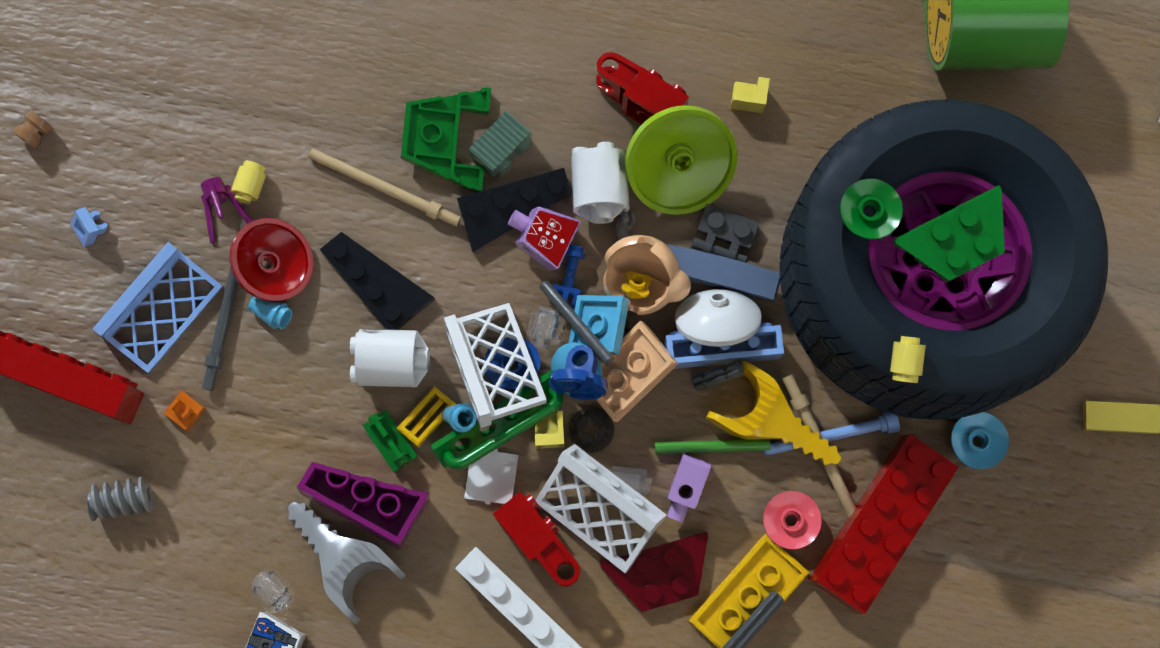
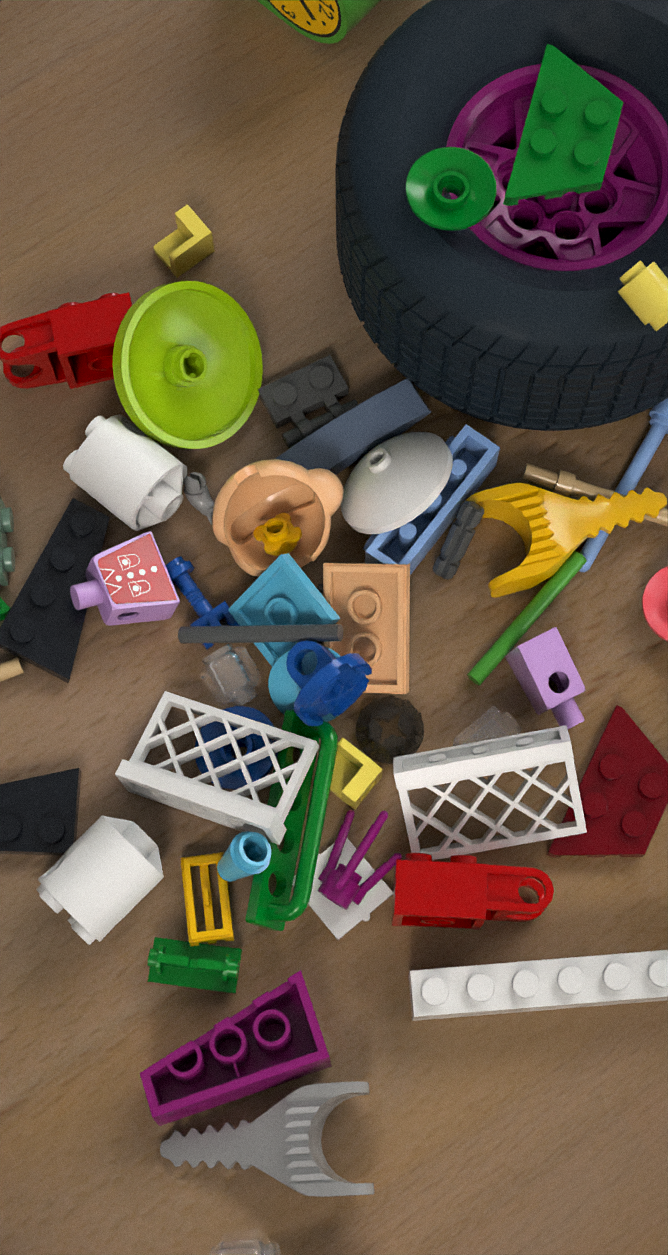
camera: 45 degrees left, 5 degrees down
(490, 474) = (342, 884): none -> magenta plant

